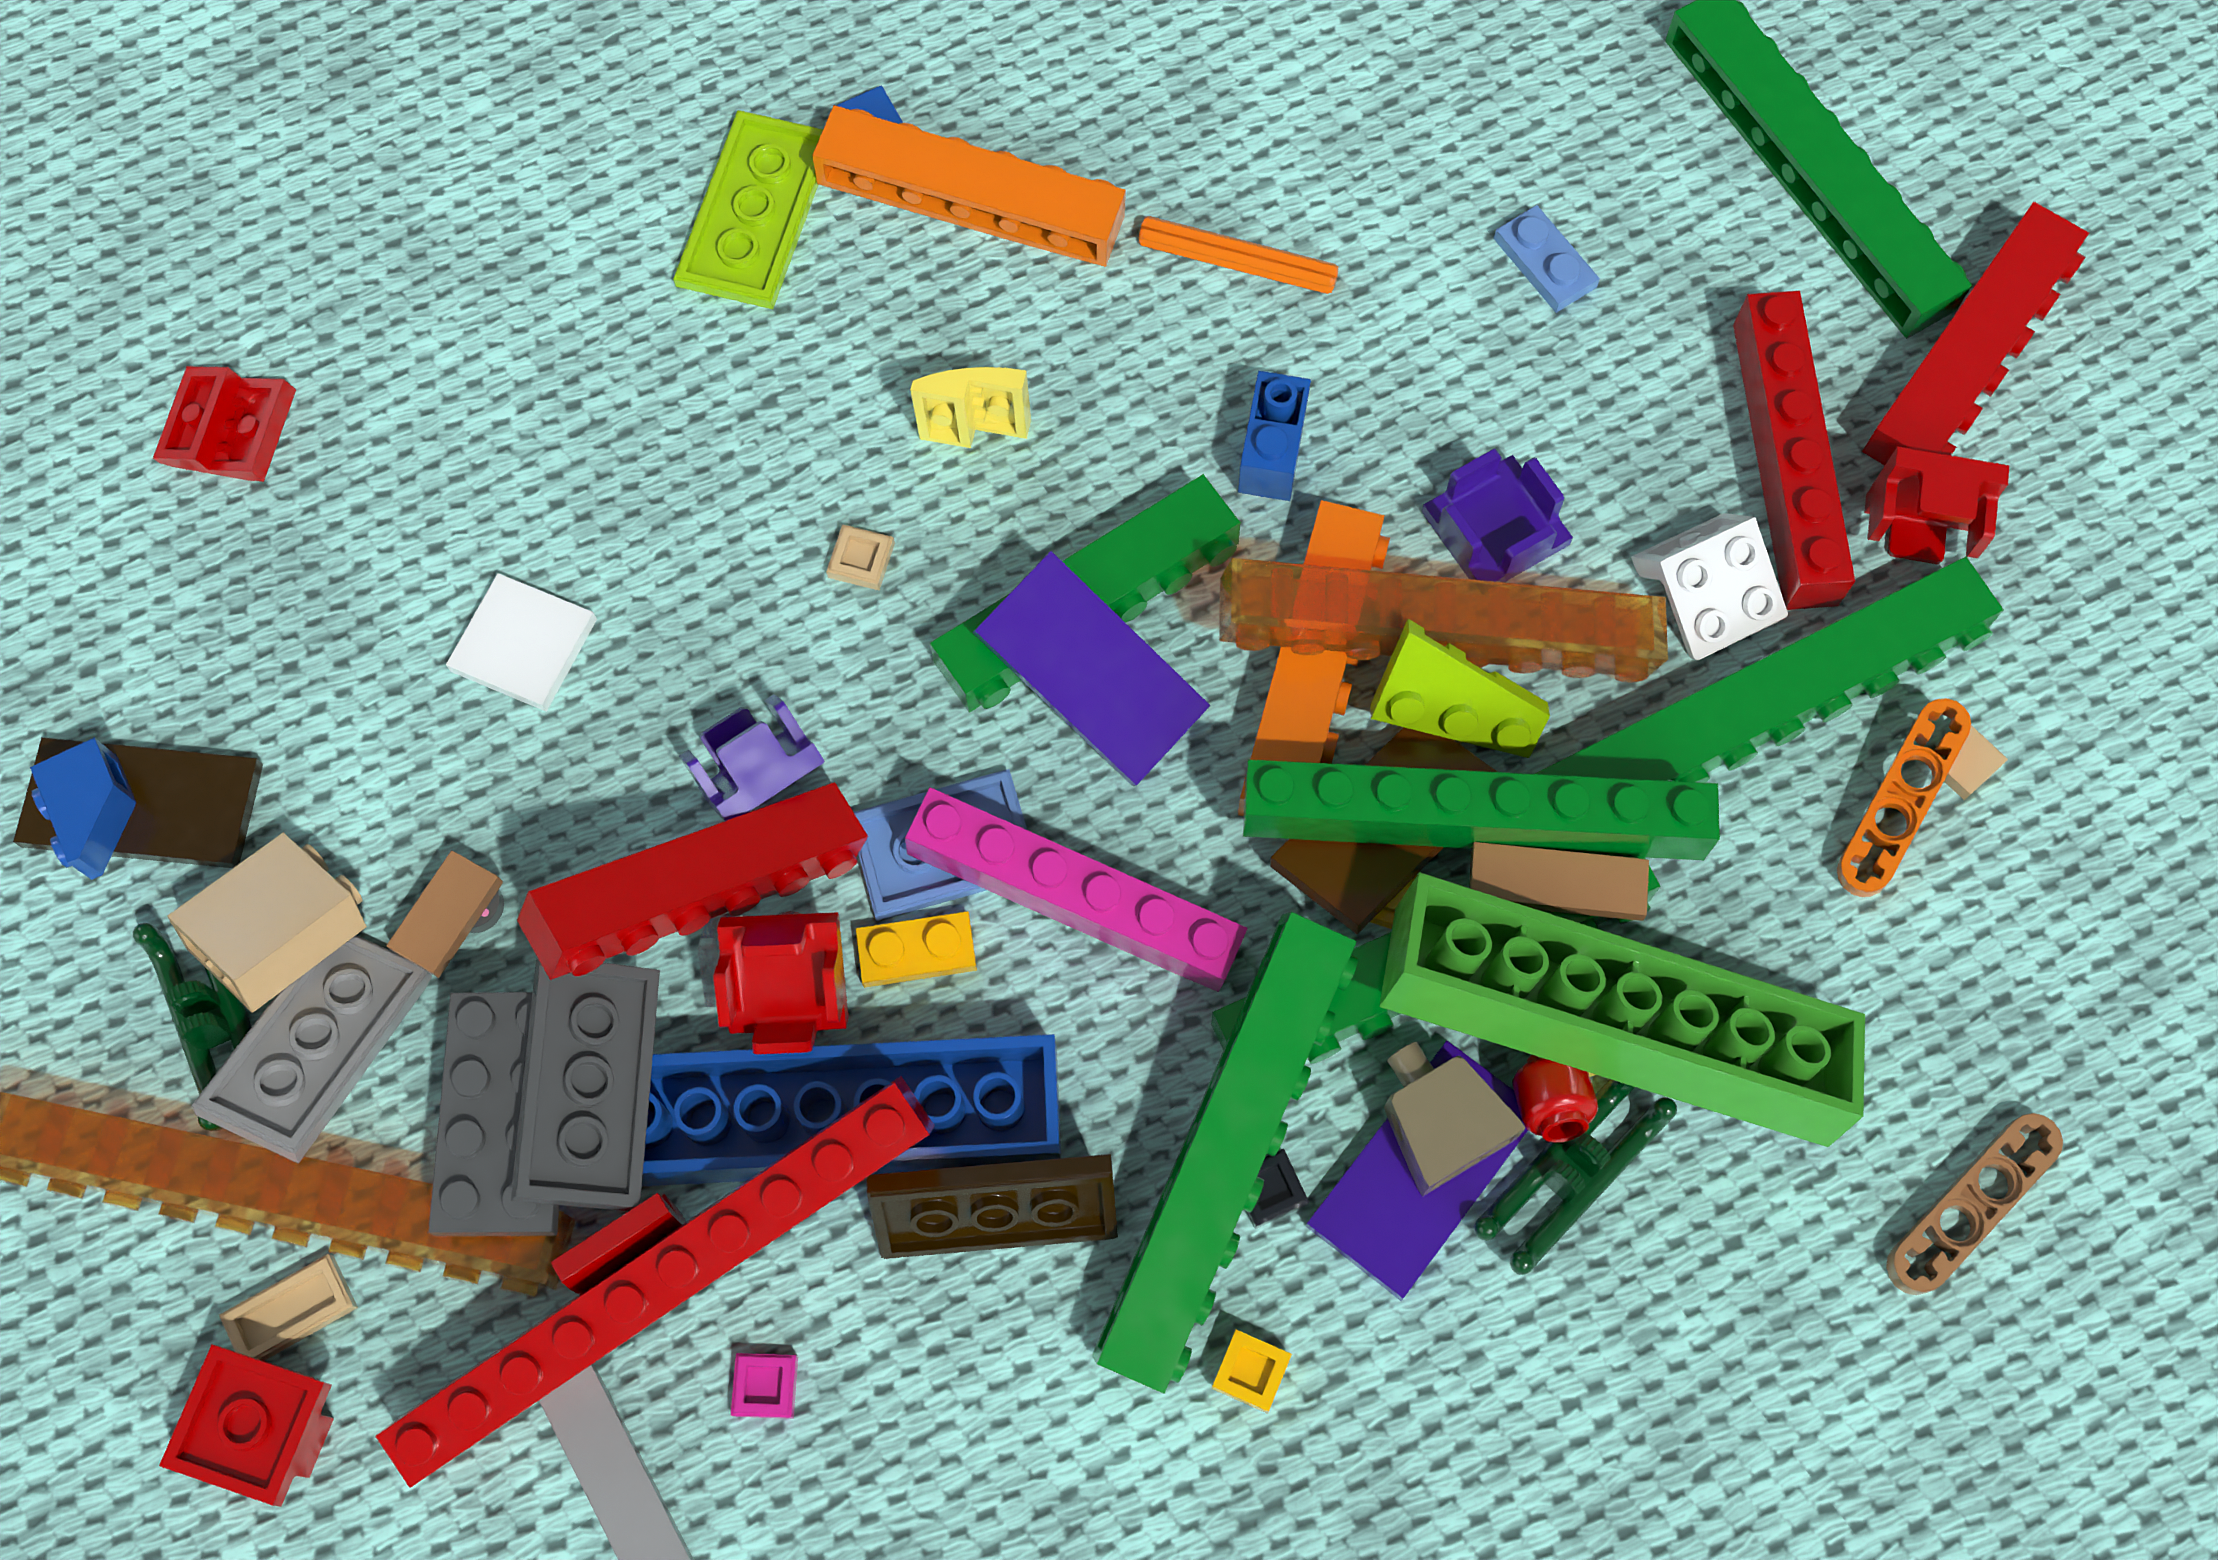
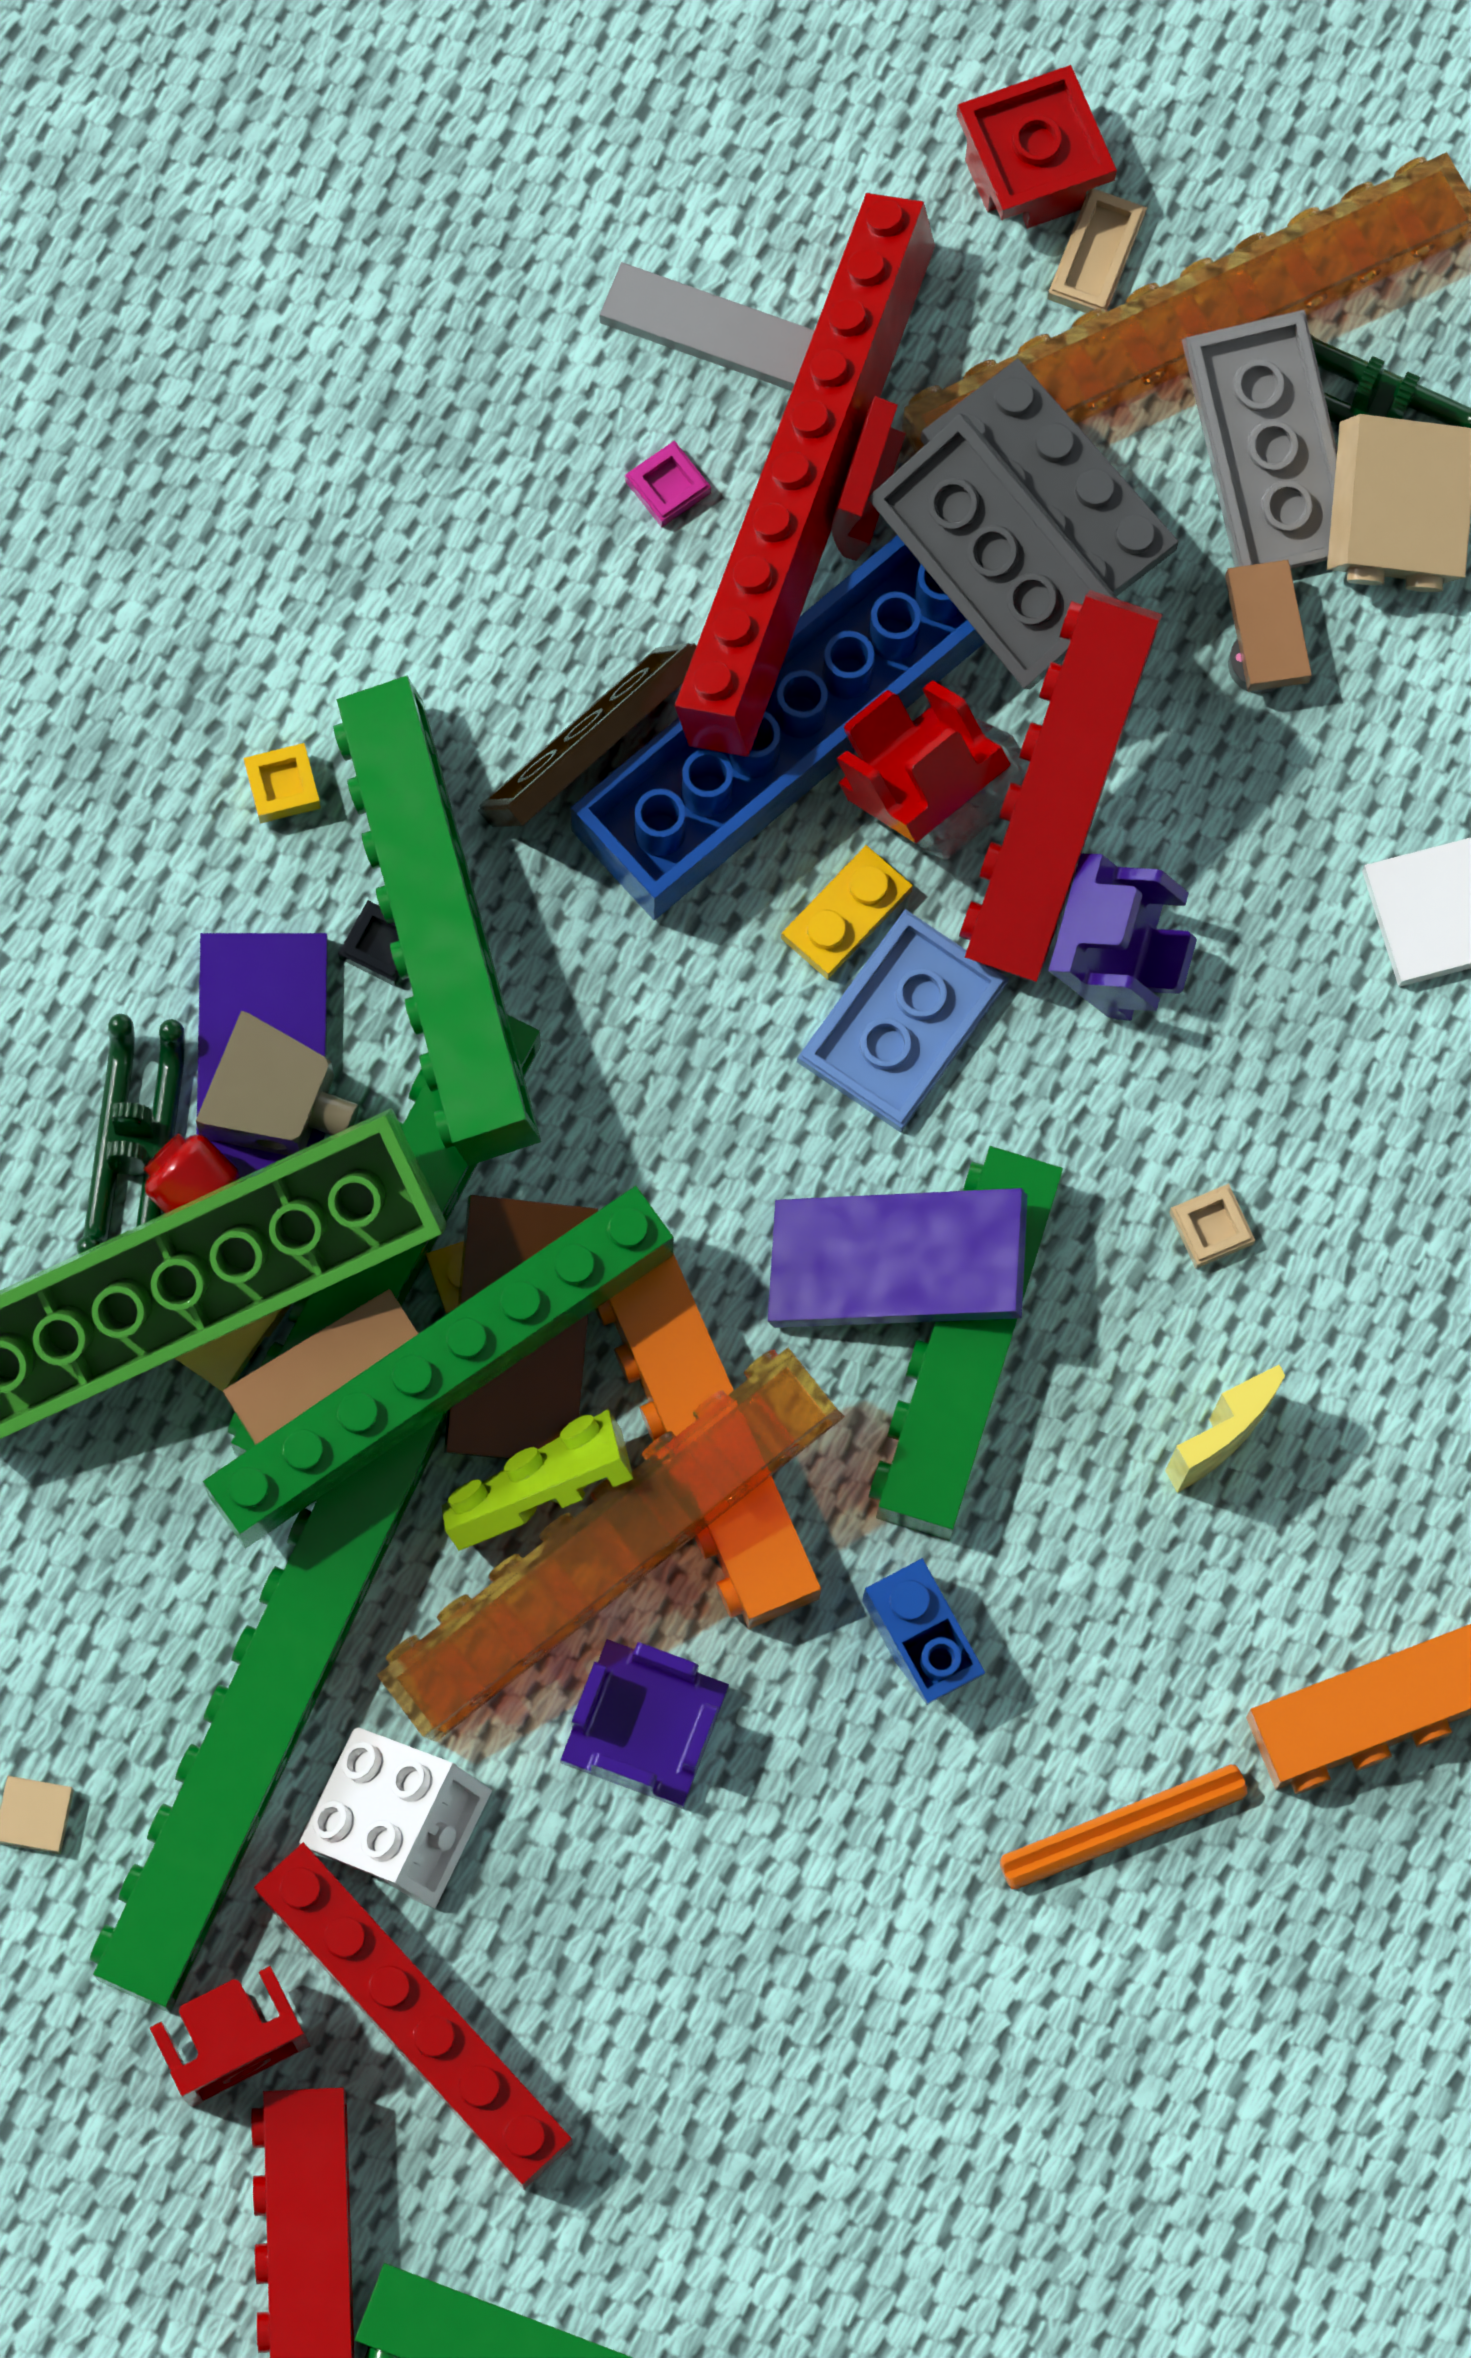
camera: 135 degrees right, 5 degrees up
(1074, 889) = (745, 1047): dark pink brick -> none
(1546, 258) = (814, 2068): medium blue plate -> none
(1907, 799) = (73, 1719): orange beam -> none

